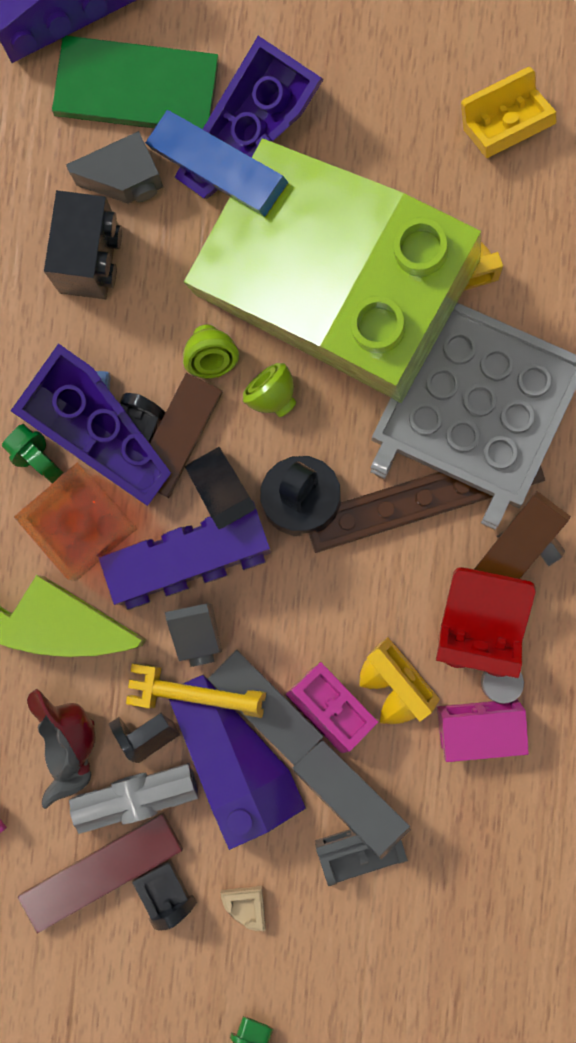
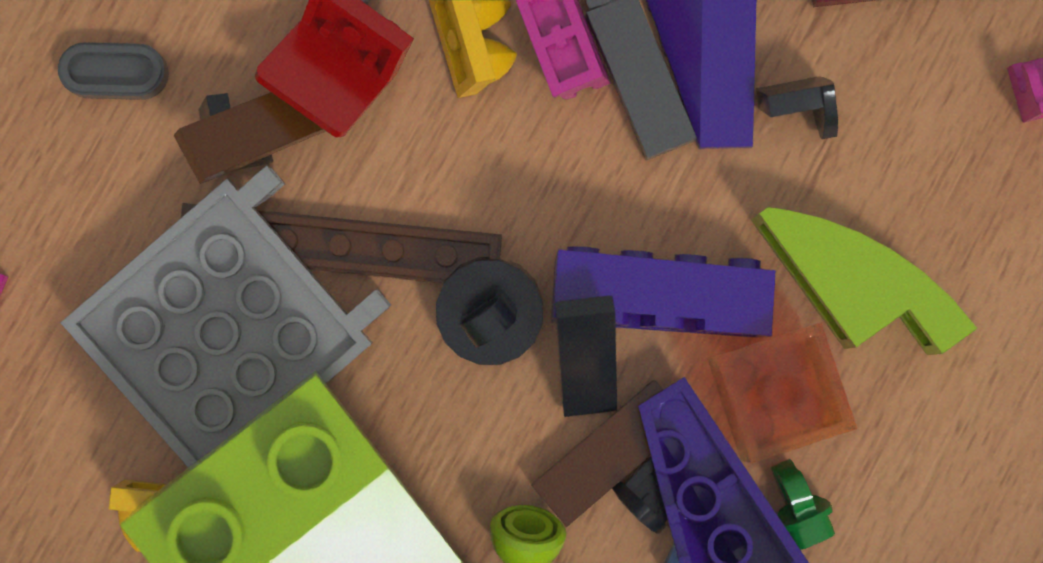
camera: 165 degrees left, 0 degrees up
(68, 744) = (897, 128): hair -> none
(133, 798) = (843, 34): light grey piece -> none
(153, 687) = (766, 155): yellow hinge -> none
(194, 633) = (690, 196): dark grey slope -> none
(271, 391) = (470, 457): lime brick -> none

